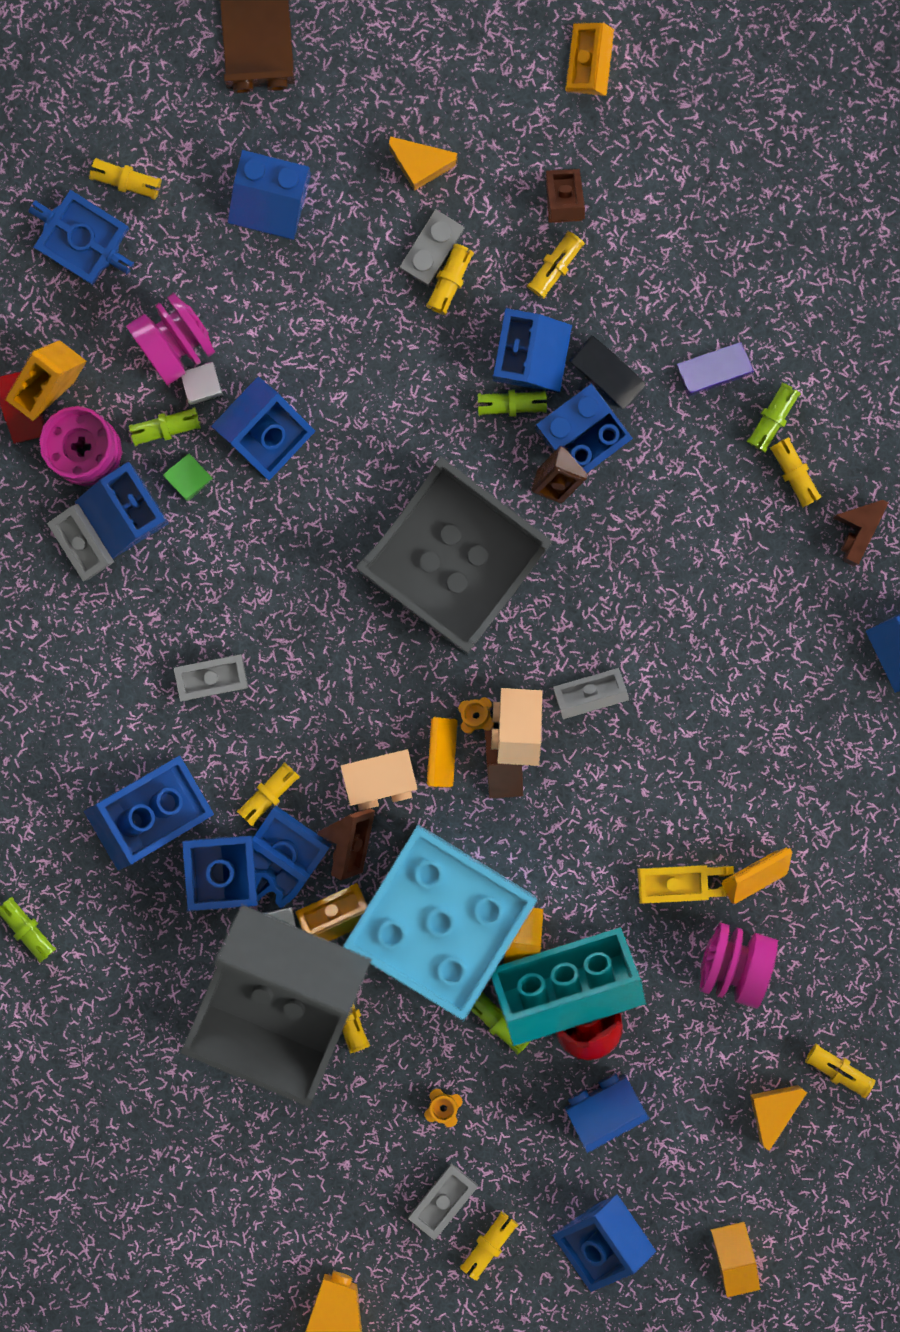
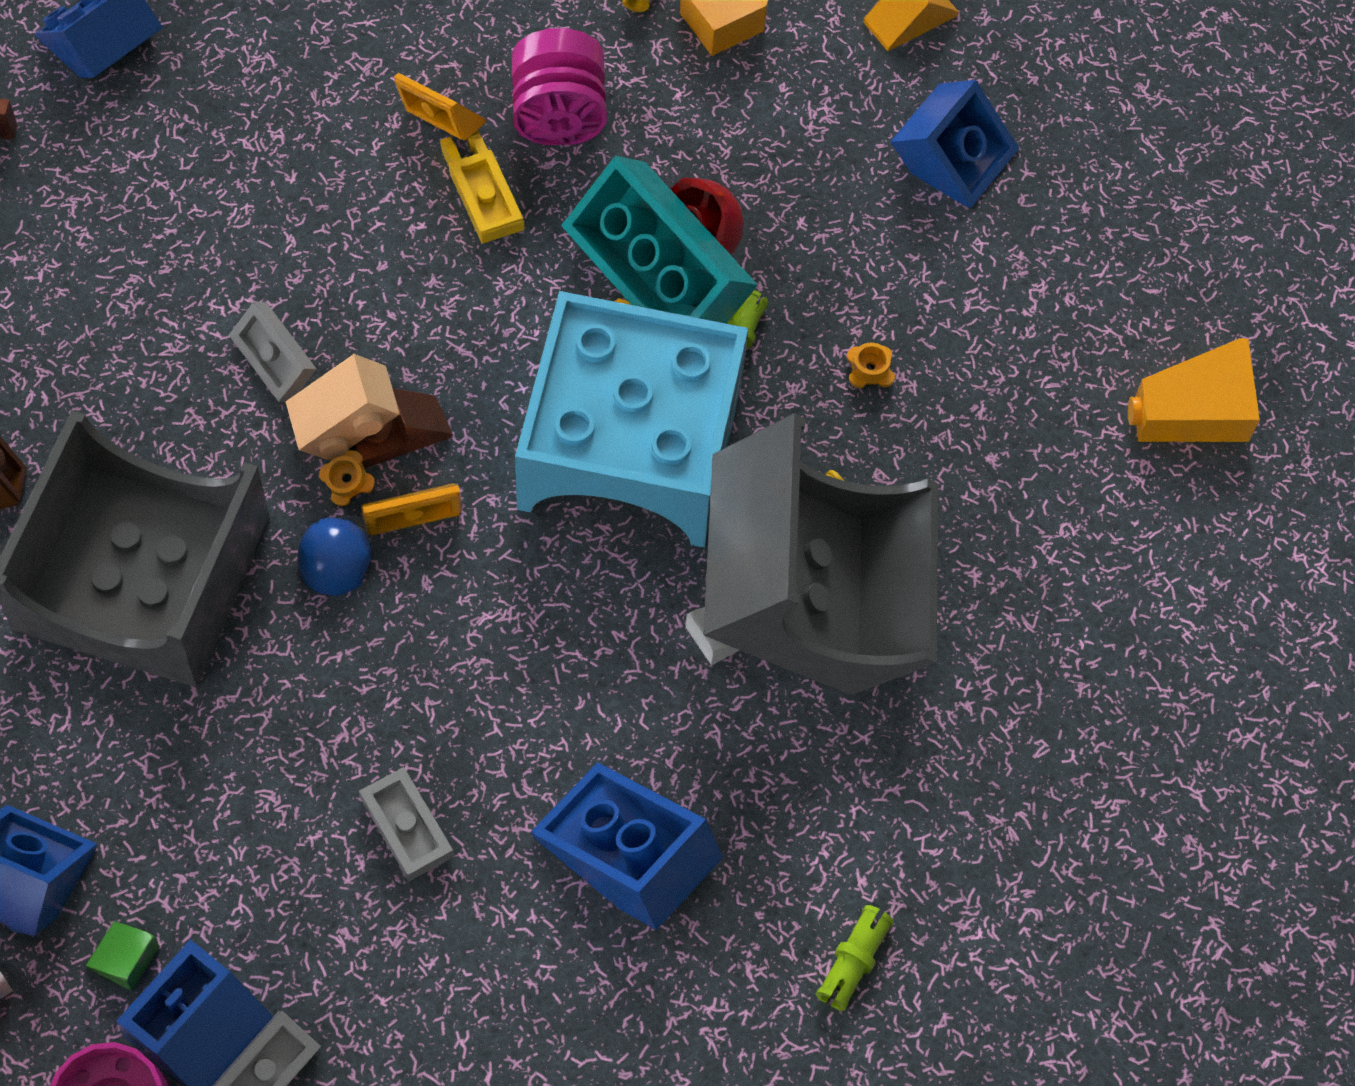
camera: 110 degrees left, 25 degrees down
(164, 426) = (52, 1008): lime pin -> none
(219, 873) = (673, 713): blue slope -> none
(268, 794) = (543, 697): yellow pin -> none
(285, 856) = (624, 651): blue plate -> none
(333, 914) = (670, 566): light orange slope -> none
(352, 842) = (560, 570): copper slope -> none
(379, 778) = (472, 563): light nougat brick -> none
(420, 689) = (334, 556): none -> blue hair
(443, 1201) = (986, 329): light grey plate -> none
(489, 1246) = (1016, 265): yellow pin -> none
(605, 1111) = (798, 174): blue slope -> none

